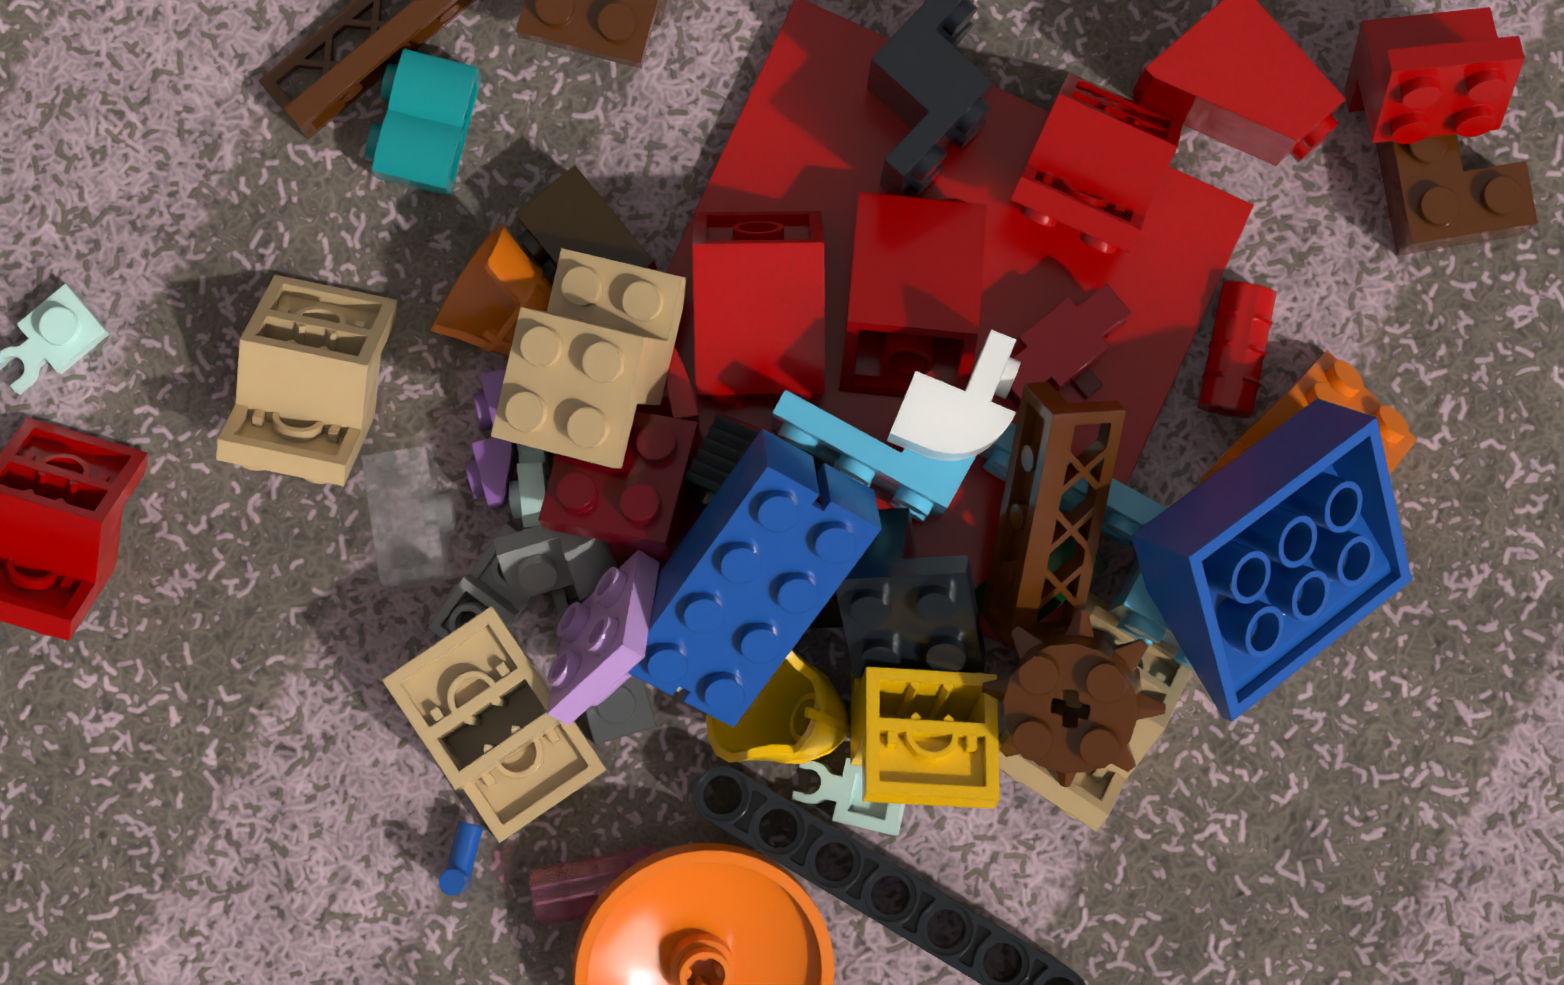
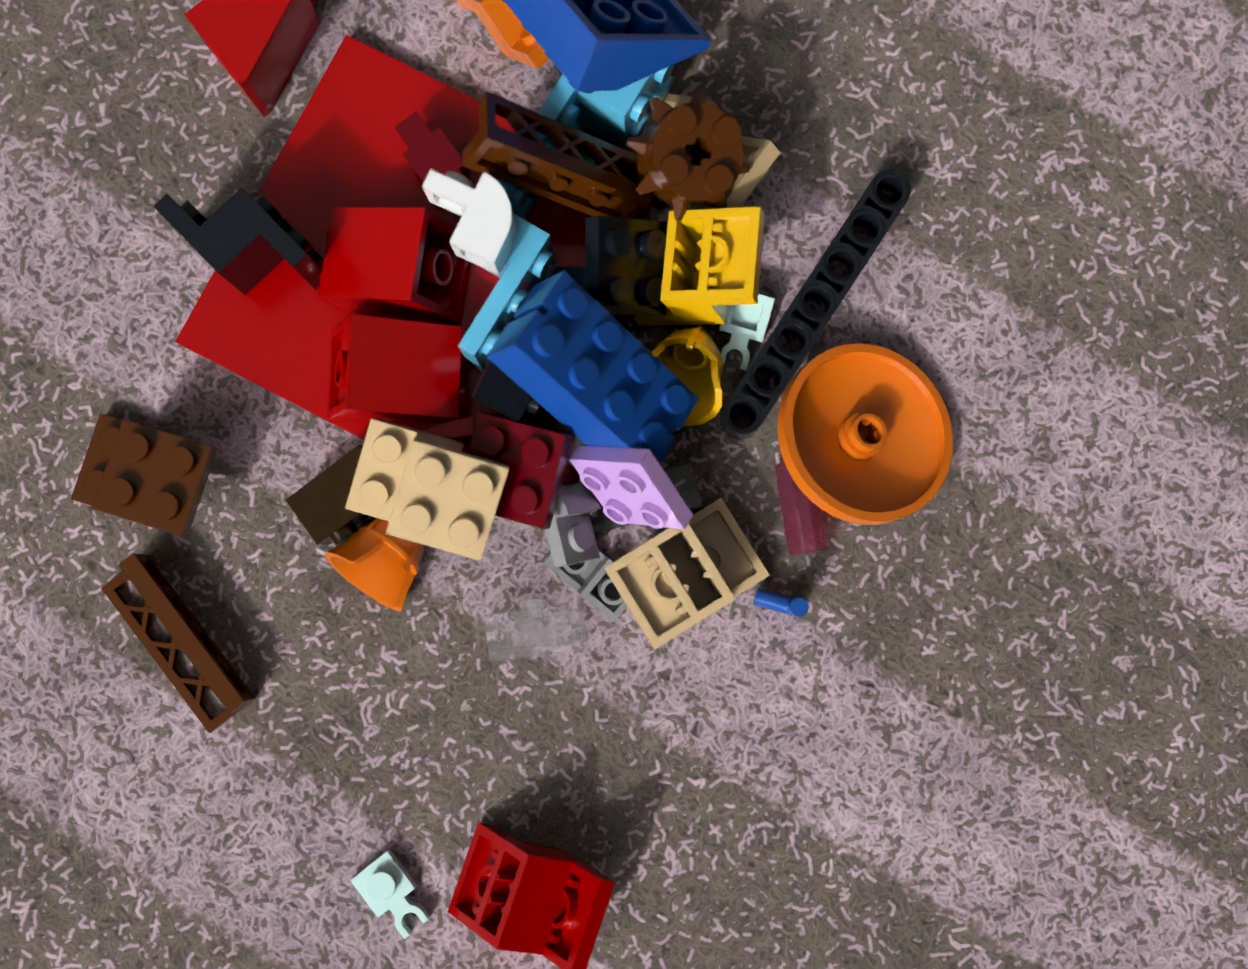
camera: 85 degrees left, 0 degrees up
(307, 380) = (432, 702): tan bracket -> none
(424, 121) = (247, 611): teal brick -> none
(494, 457) = (494, 568): medium lavender slope -> none
(529, 490) = (521, 542): light aqua plate -> none
(1097, 165) = (311, 130): red bracket -> none
(1237, 349) = (446, 50): red axle -> none

